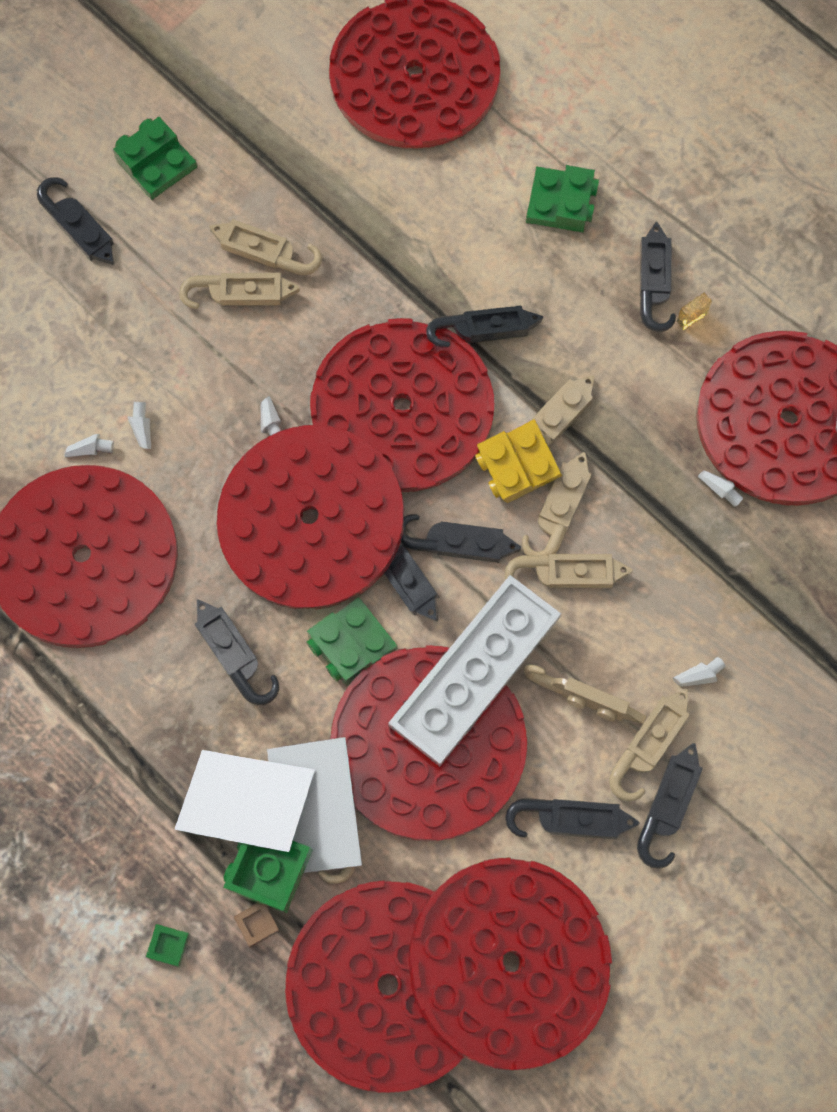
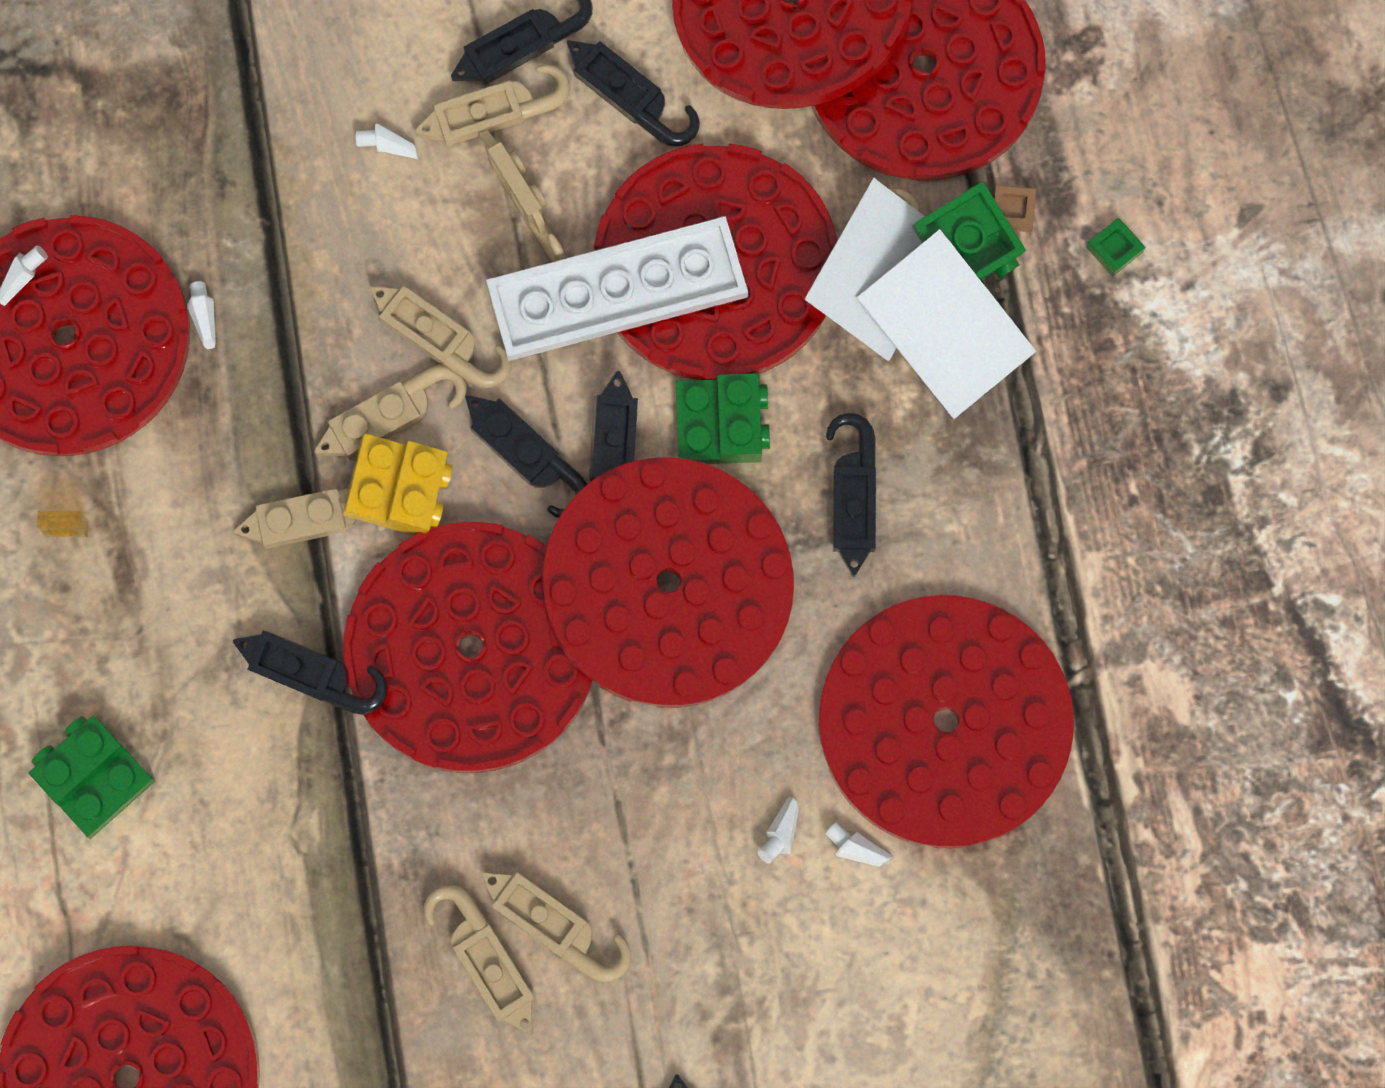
camera: 145 degrees left, 5 degrees up
(269, 417) = (630, 735): white bar -> none
(655, 276) = (67, 599): black plate -> none

